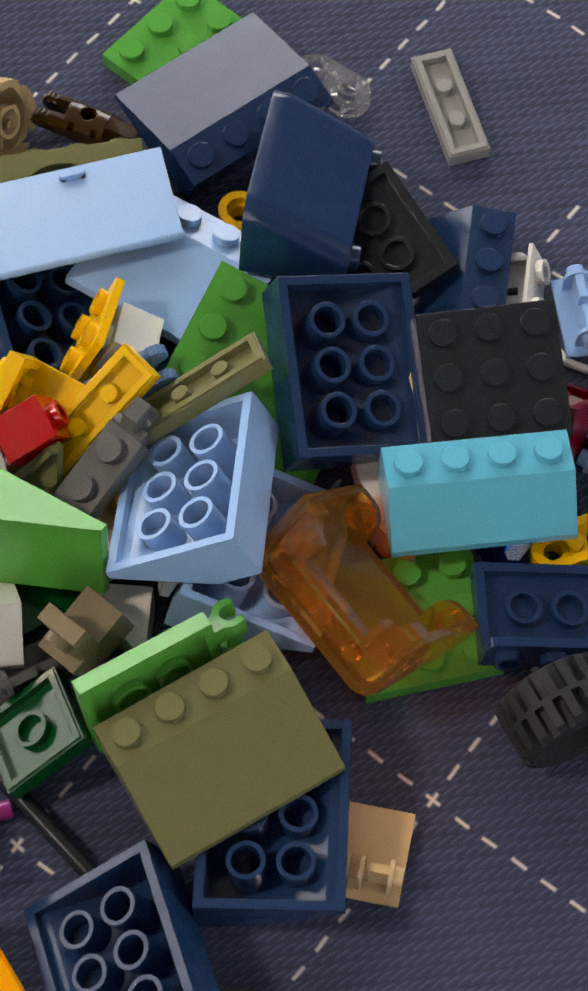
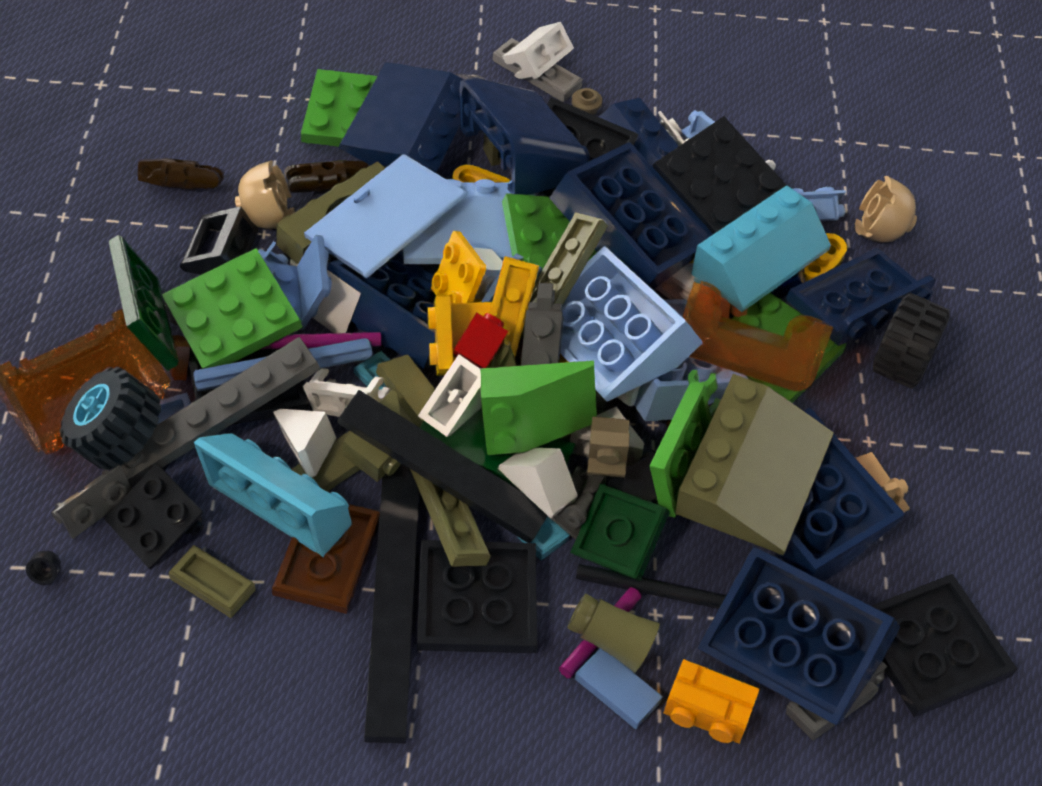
camera: 40 degrees left, 10 degrees down
(461, 85) = (540, 50): none -> white hinge
(470, 190) = (587, 100): none -> dark tan plate

